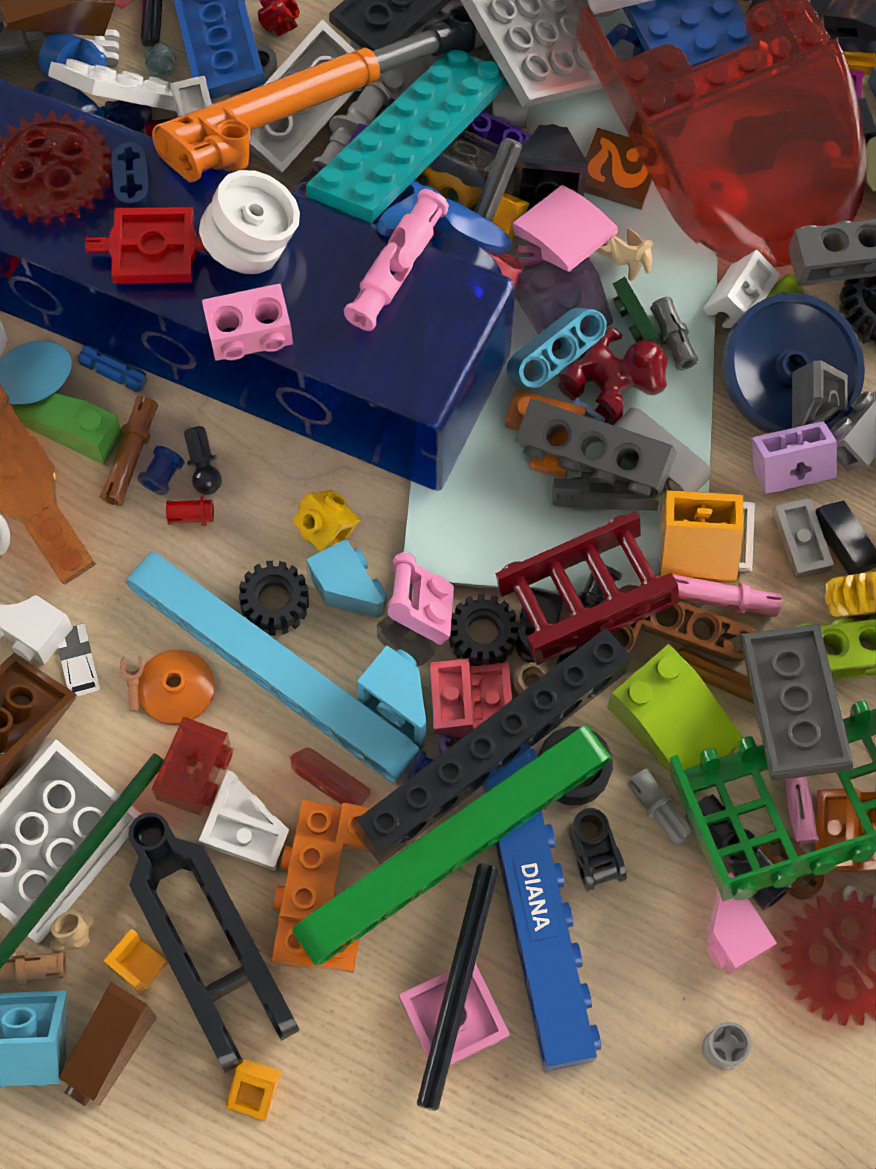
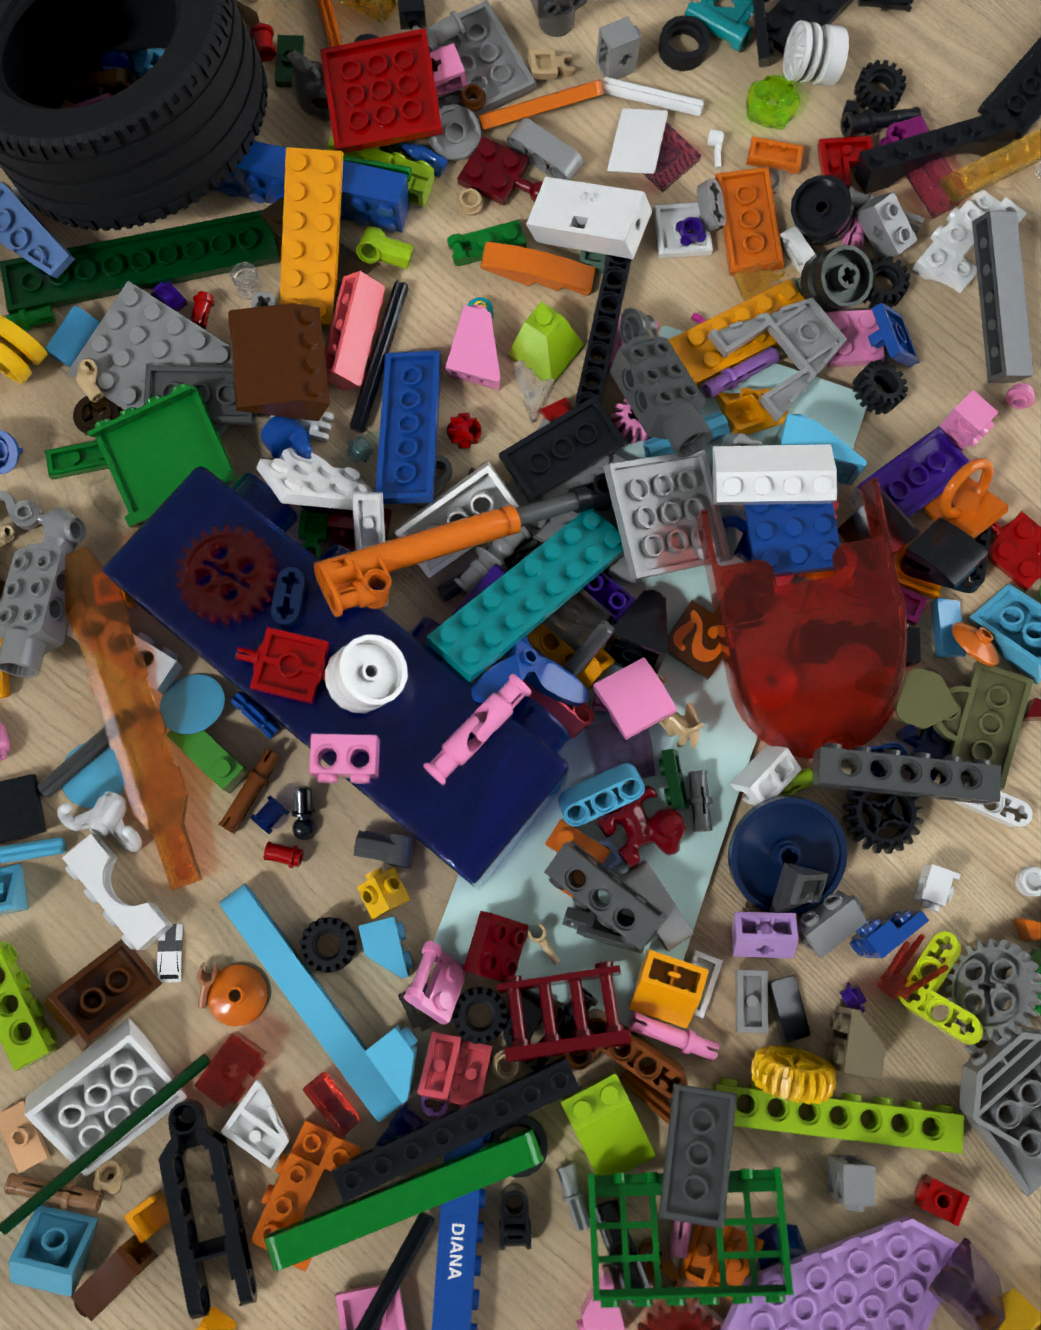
camera: 15 degrees right, 10 degrees up
(323, 472) = (392, 849): none -> dark grey piece
(478, 541) = (495, 946): none -> dark red bracket
(532, 528) = (543, 942): none -> tan hand

